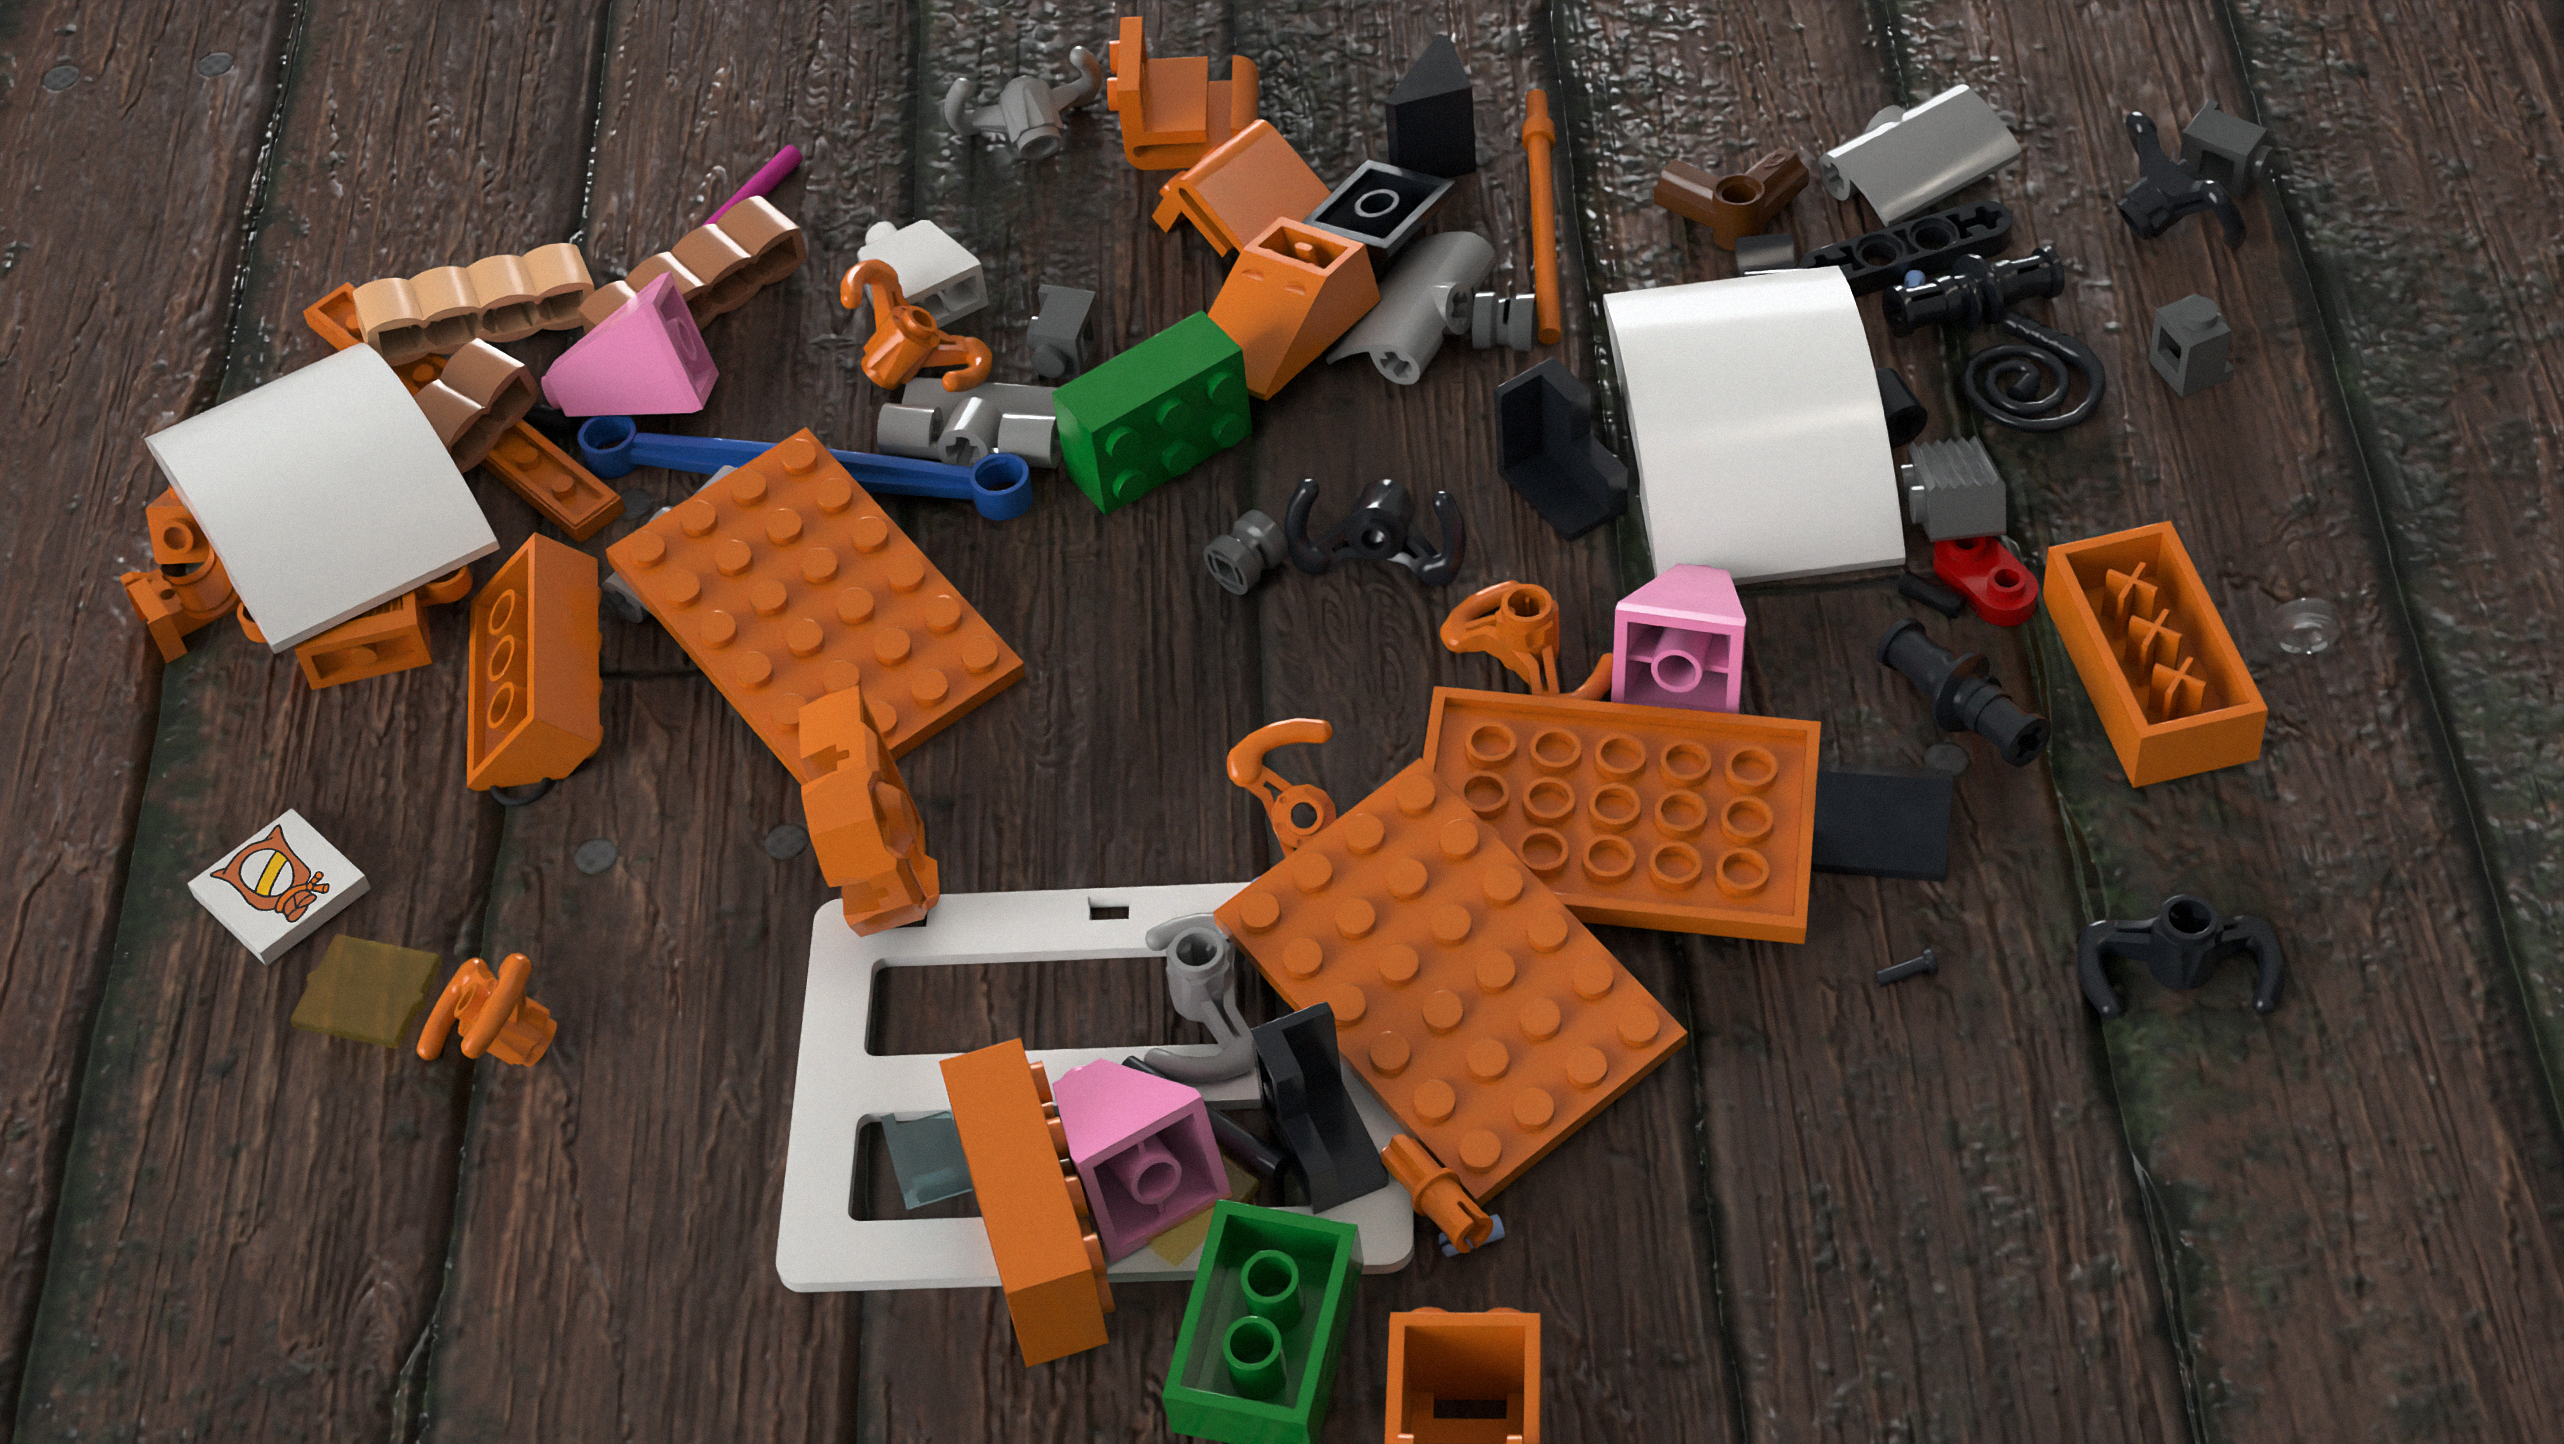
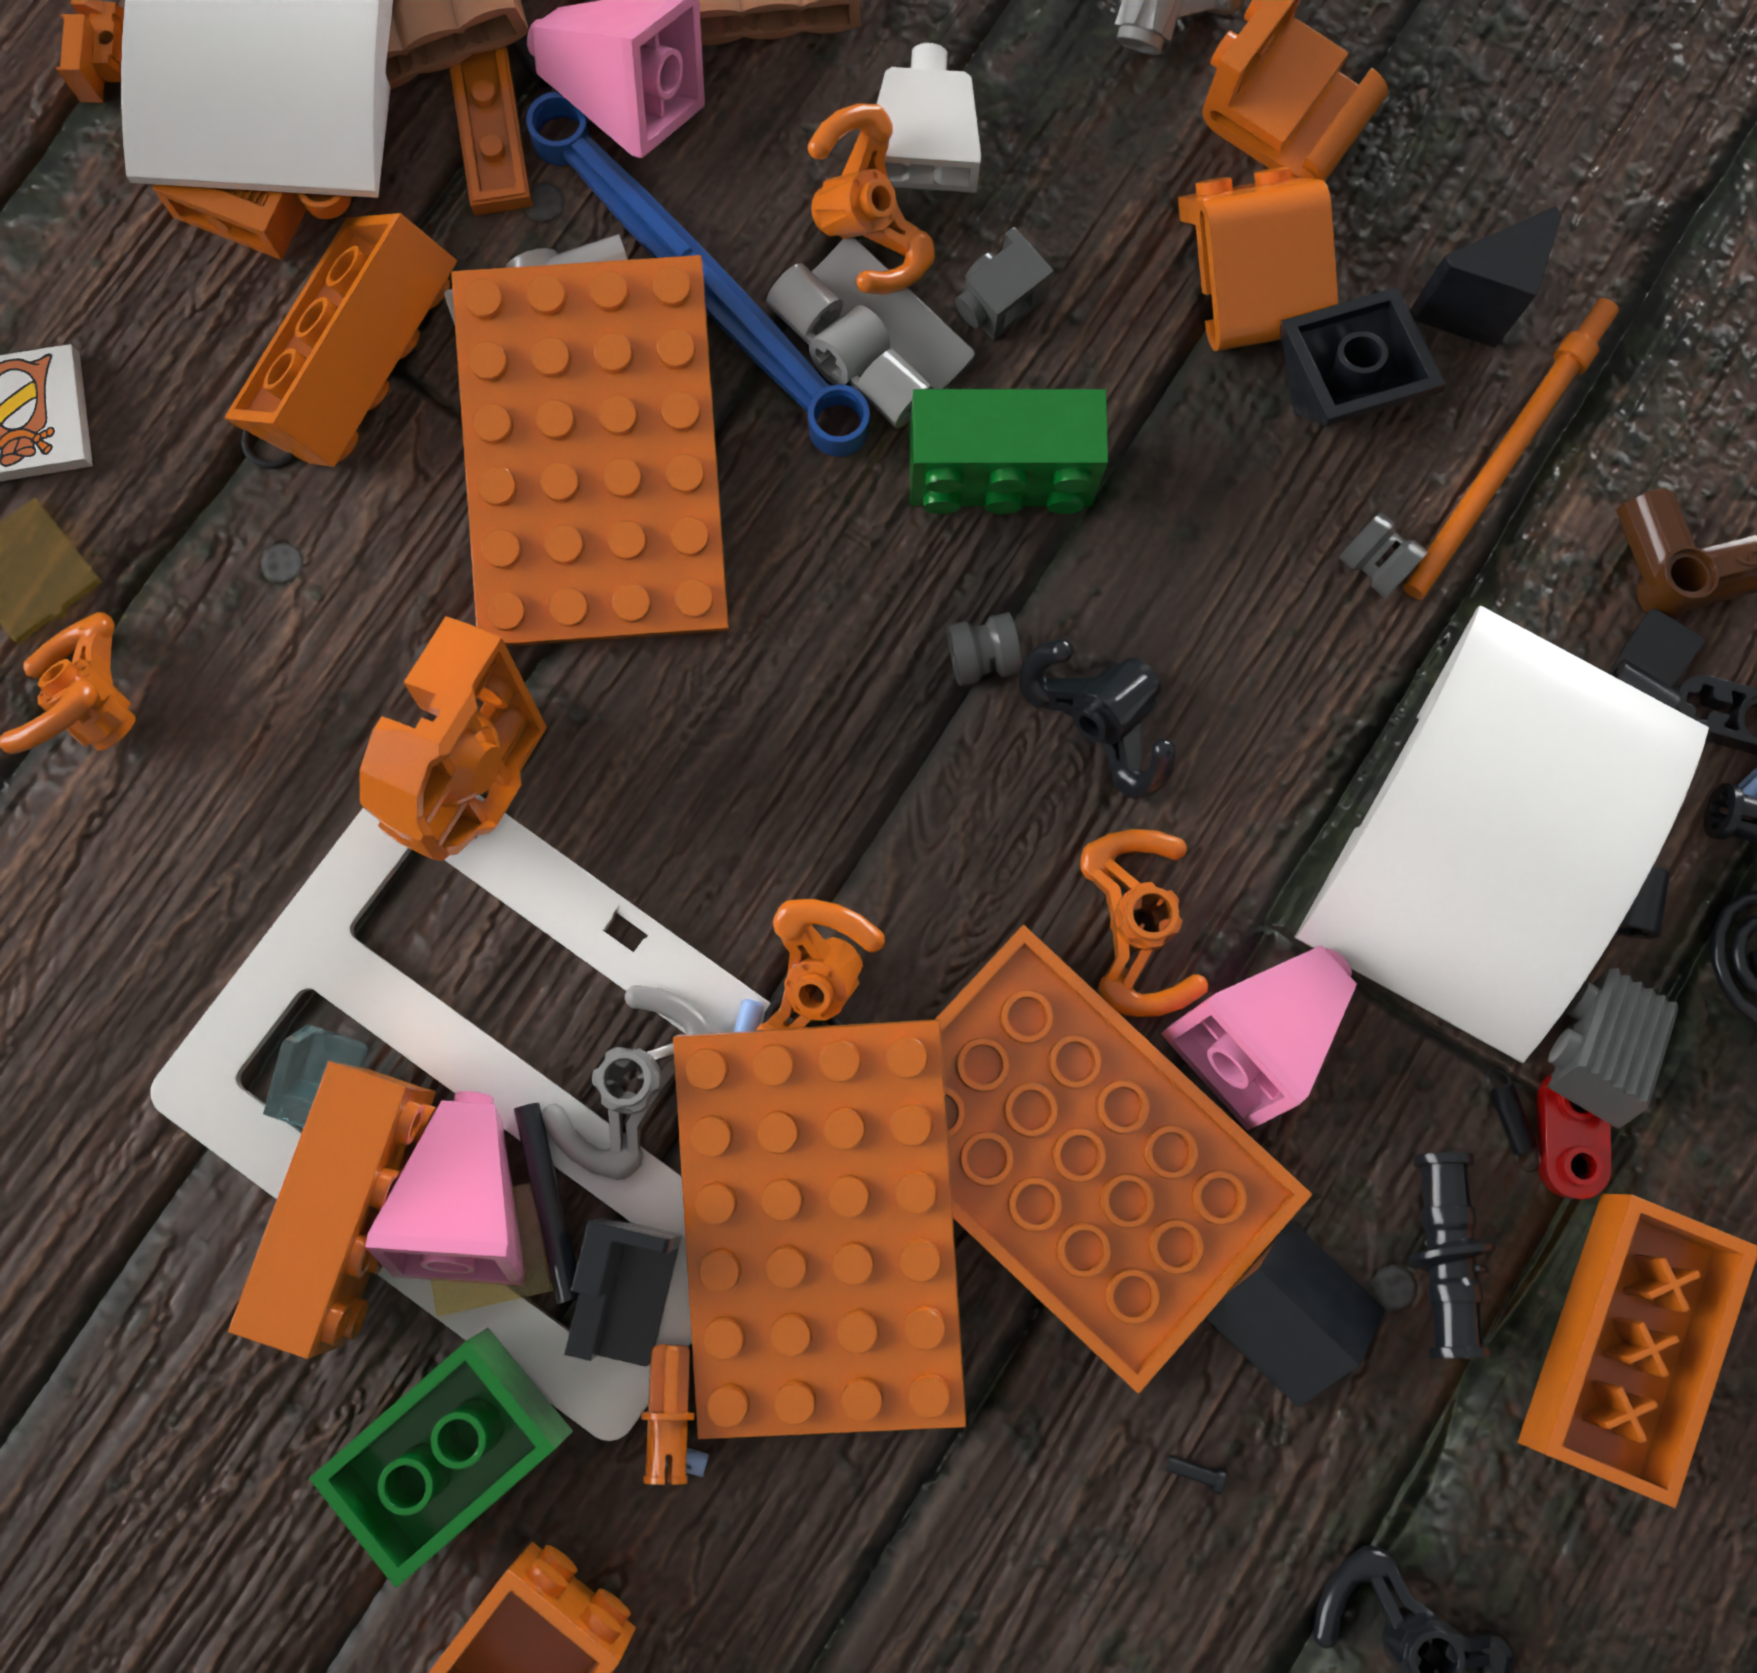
camera: 25 degrees right, 30 degrees up
(1292, 300) = (1202, 405): orange slope -> none
(1422, 297) = (1320, 480): light grey panel -> none
(1552, 455) = (1308, 748): black panel -> none

